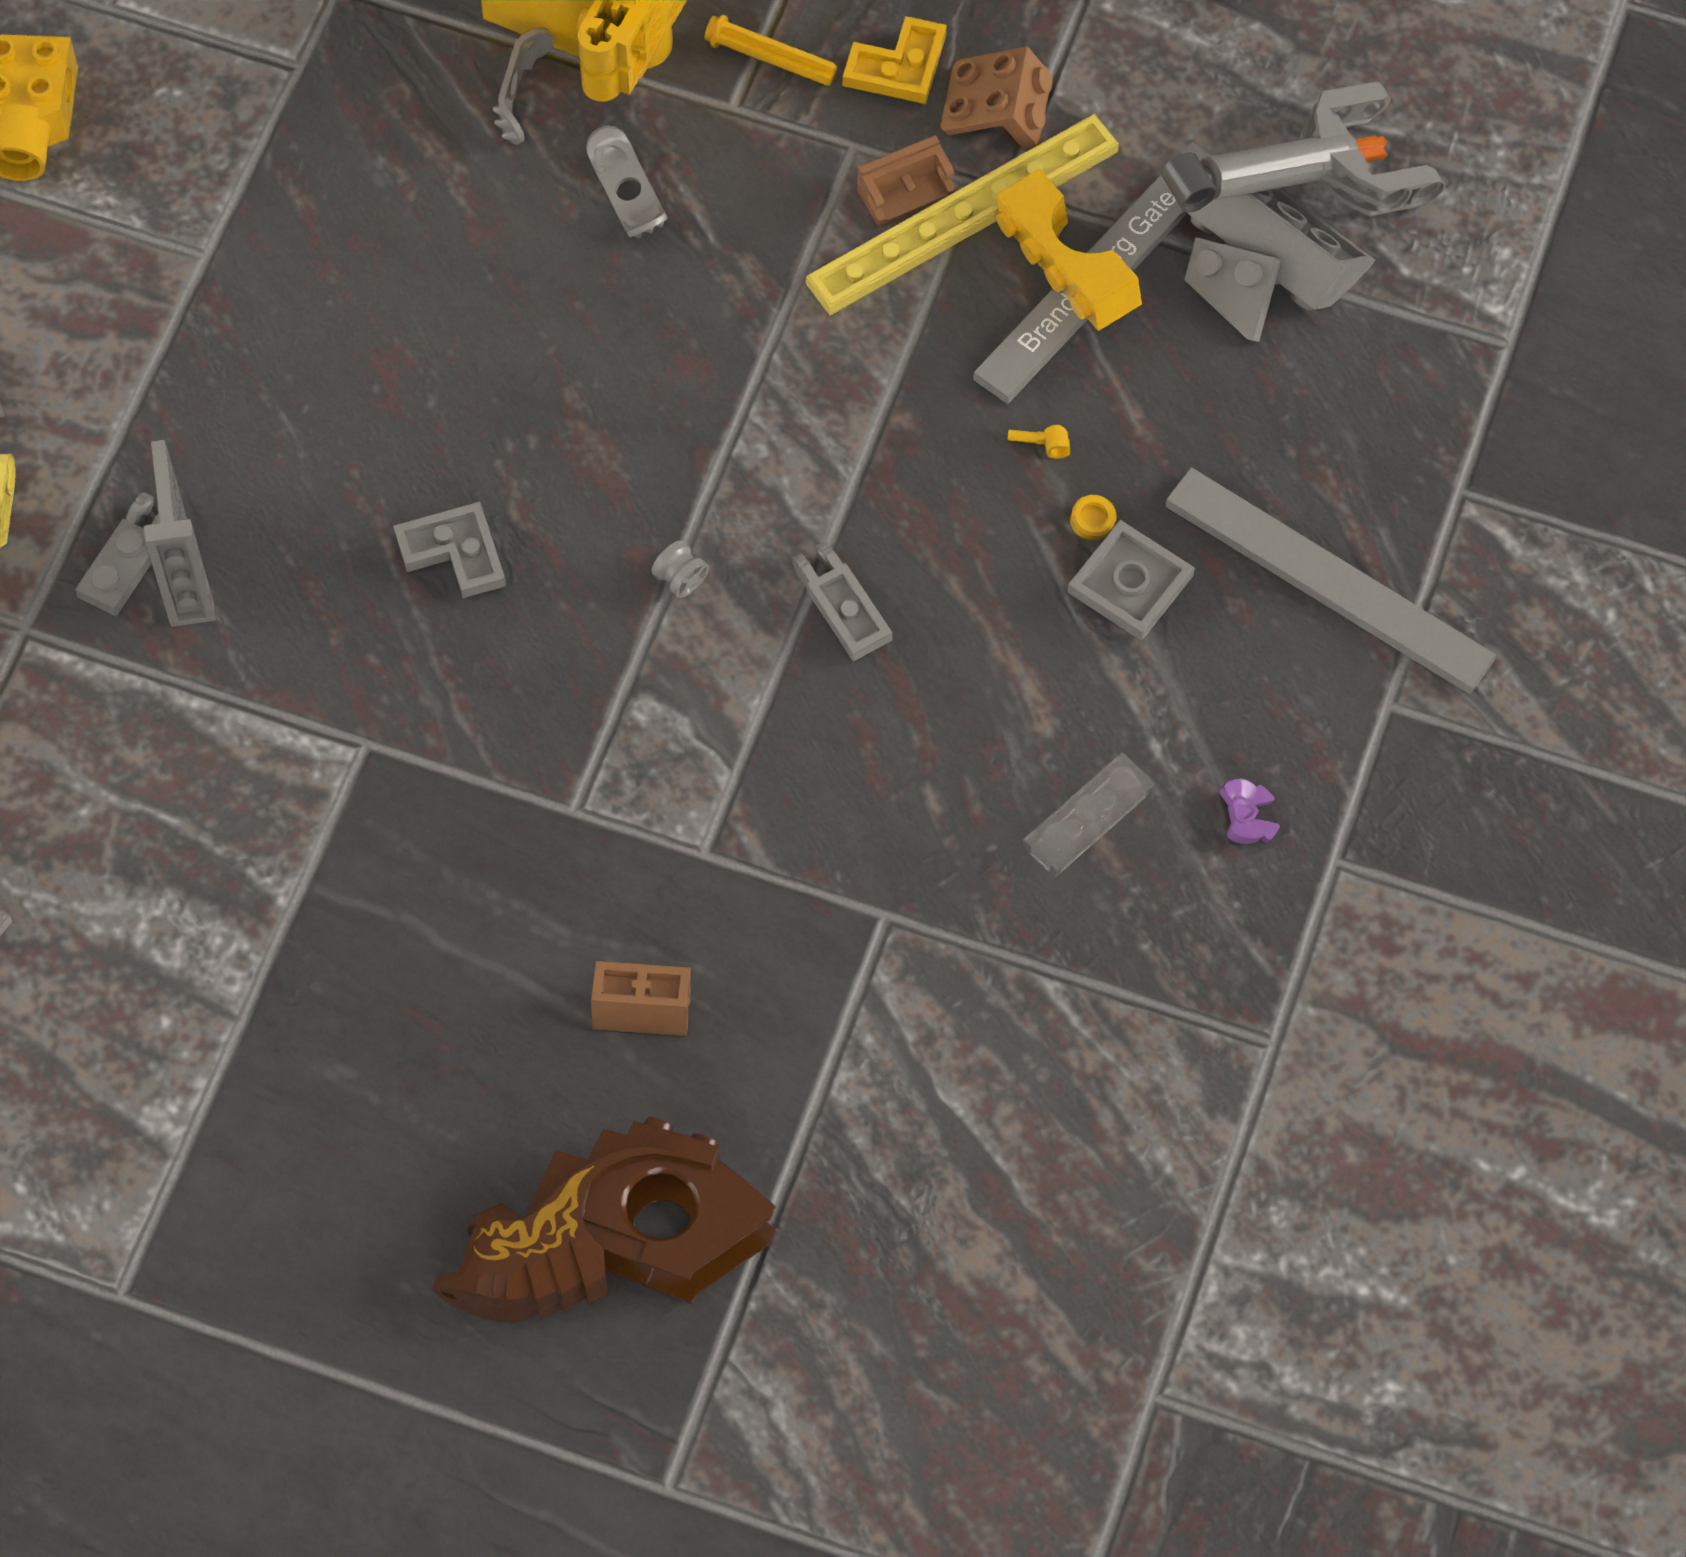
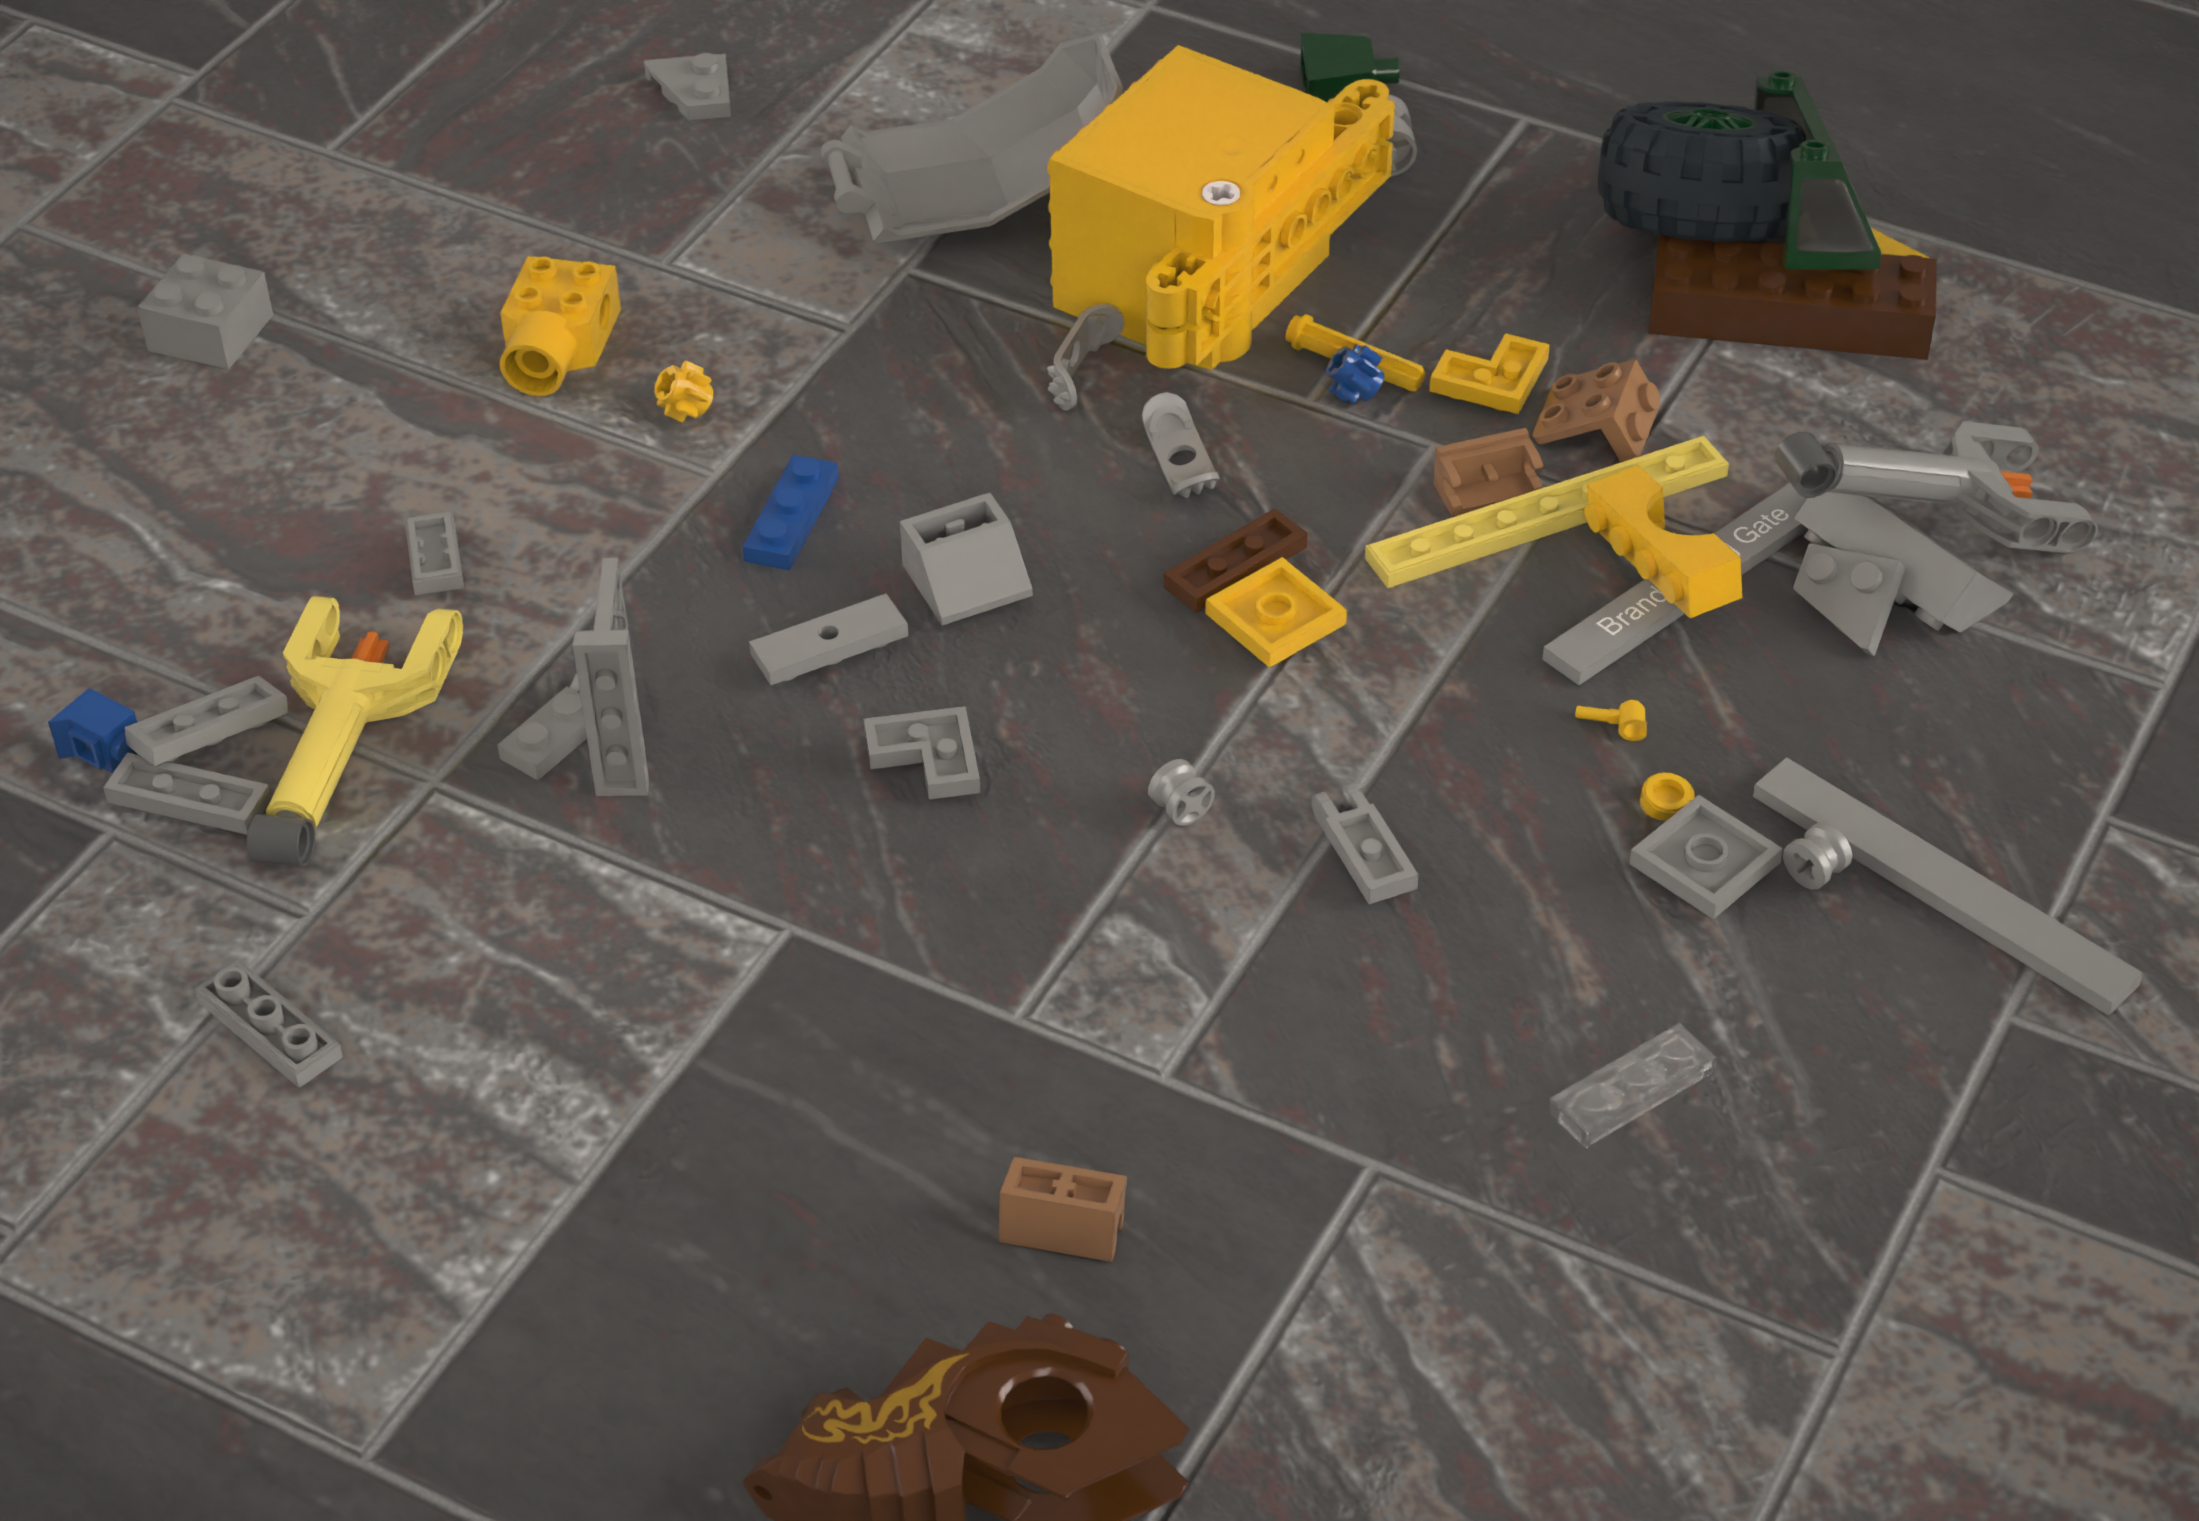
camera: 10 degrees right, 20 degrees down
(161, 171) = (683, 391): none -> yellow gear
(284, 294) = (790, 512): none -> blue plate
(365, 424) = (828, 639): none -> light grey tile
(453, 340) = (964, 558): none -> light grey slope
(693, 306) = (1234, 558): none -> reddish brown plate
(736, 361) = (1275, 612): none -> yellow plate
(774, 80) = (1355, 373): none -> blue gear
(1224, 569) = (1817, 856): none -> light grey wheel
(1242, 803) = (1822, 1095): medium lavender piece -> none

